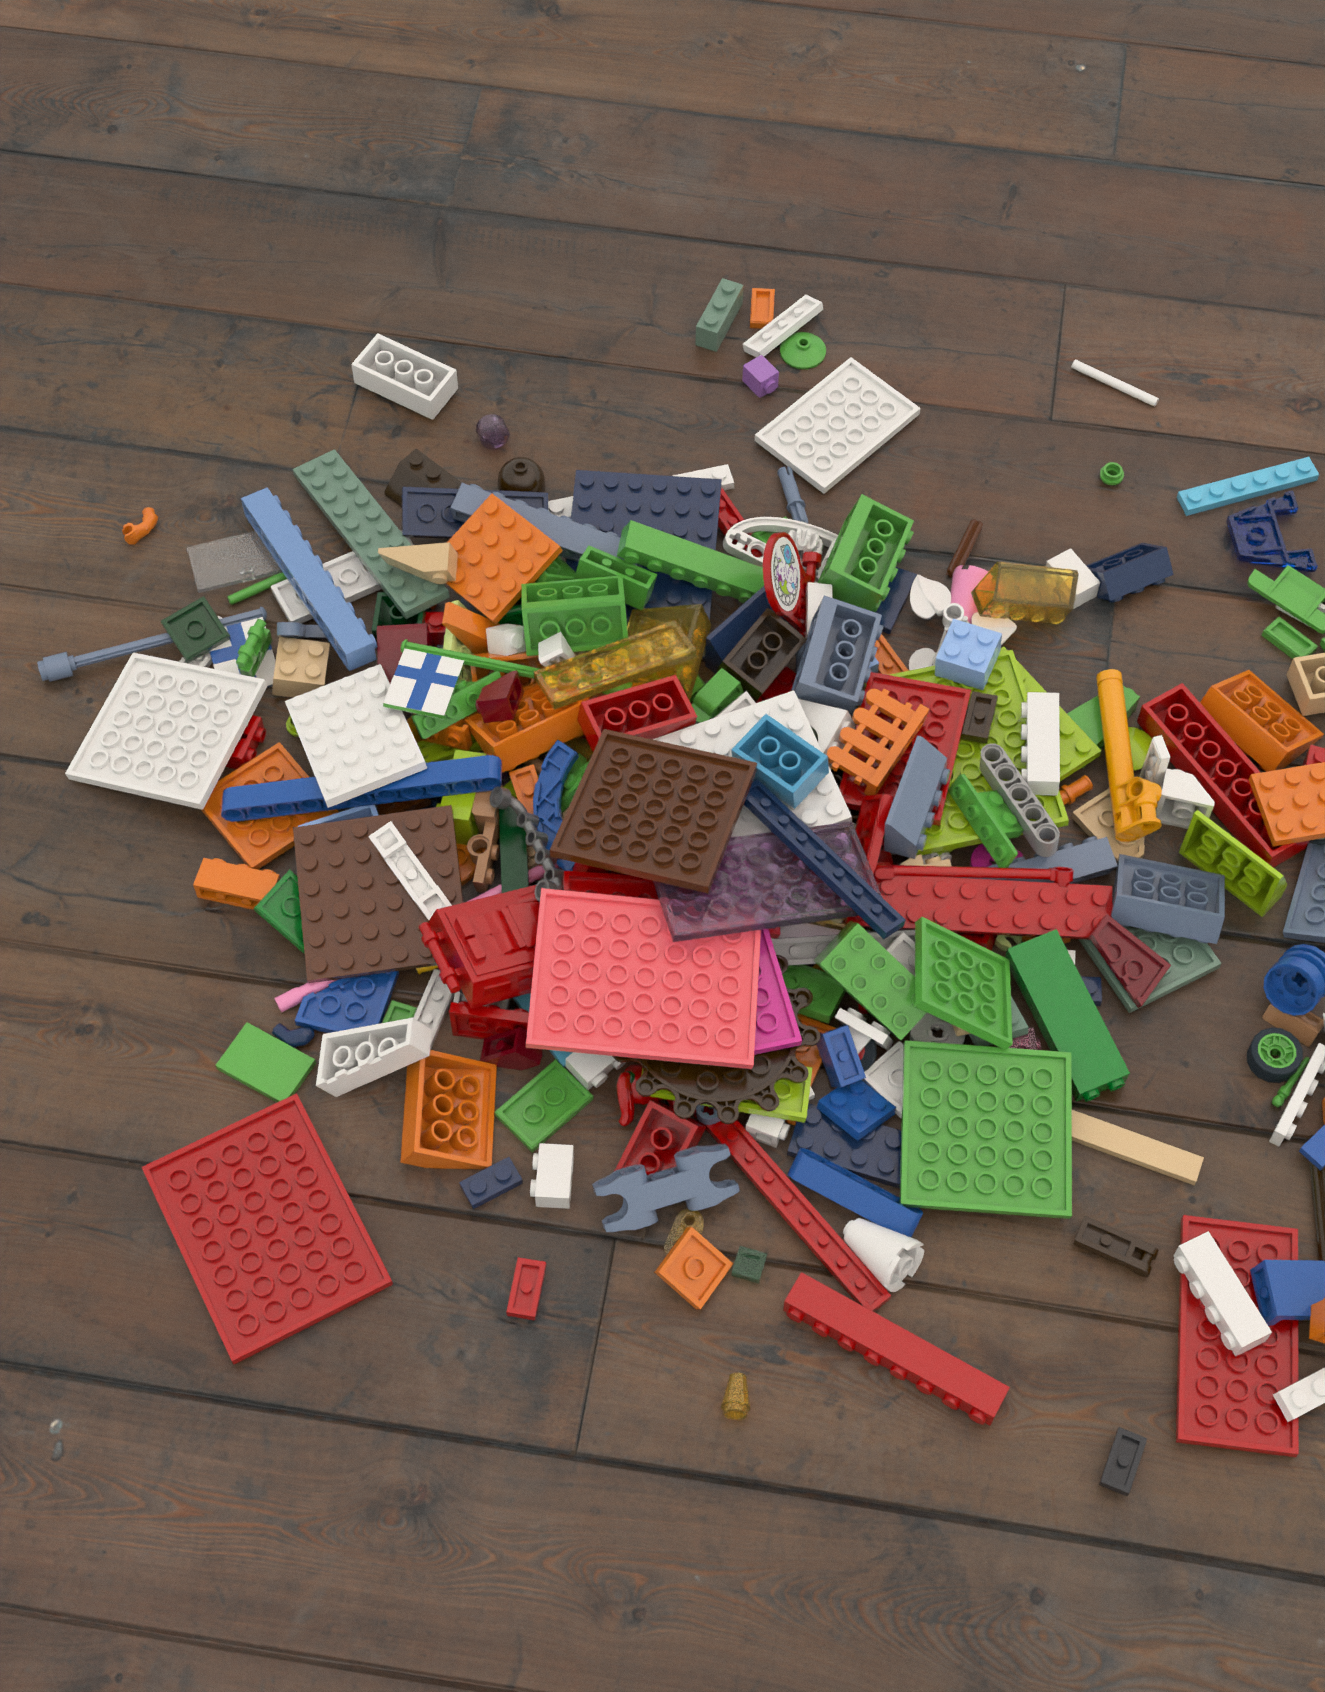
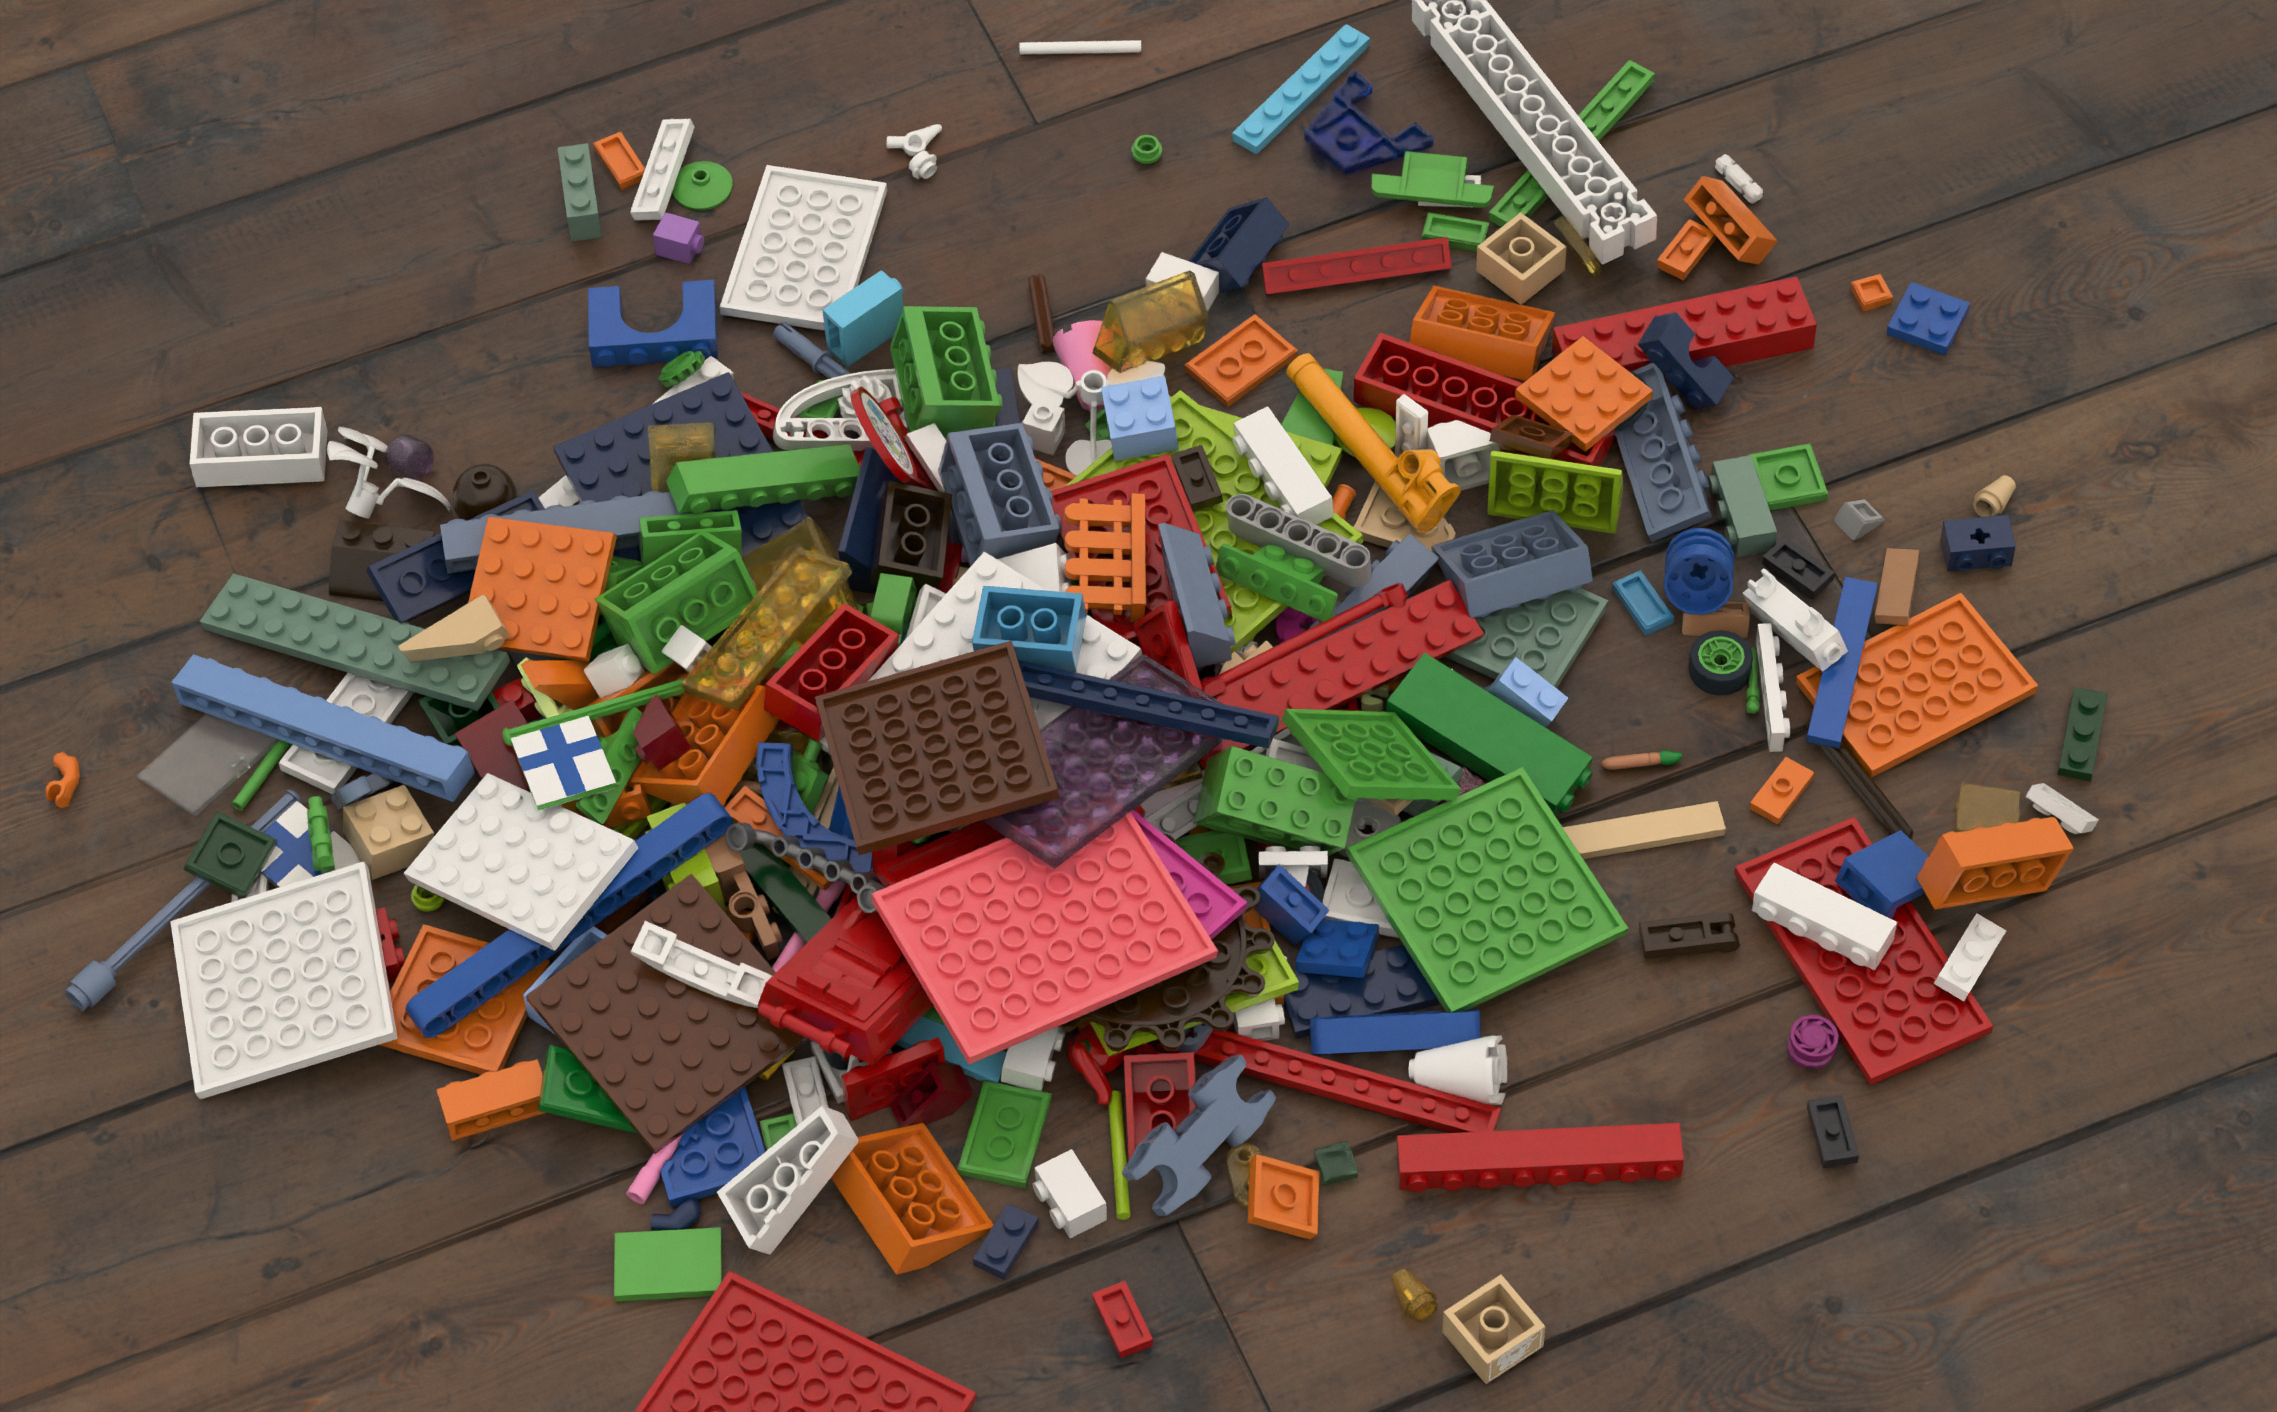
camera: 30 degrees left, 5 degrees down
(448, 440) = (365, 494): none -> white plant
(608, 1166) = (1119, 1156): none -> lime bar
(650, 511) = (677, 444): none -> clear yellow slope
(701, 462) = (681, 368): none -> bright green gear
(722, 445) = (618, 344): none -> blue arch
(771, 1460) = (1493, 1329): none -> tan brick
(838, 488) = (863, 318): none -> medium azure brick
(909, 626) = (1045, 425): none -> white brick
(954, 409) = (923, 165): none -> white plate
(960, 391) = (914, 141): none -> white animal
(1078, 651) = (1241, 360): none -> orange tile
(1113, 1000) = (1528, 692): none -> light blue brick
(1129, 958) = (1509, 637): dark red wing -> none
(1153, 1382) = (1812, 1043): none -> magenta wheel
(1169, 1094) = (1664, 757): none -> nougat piece
(1202, 627) = (1356, 265): none -> red plate
(1236, 815) = (1530, 437): none -> reddish brown plate
(1247, 978) = (1642, 603): none -> dark azure tile
(1258, 1176) = (1781, 790): none -> orange plate

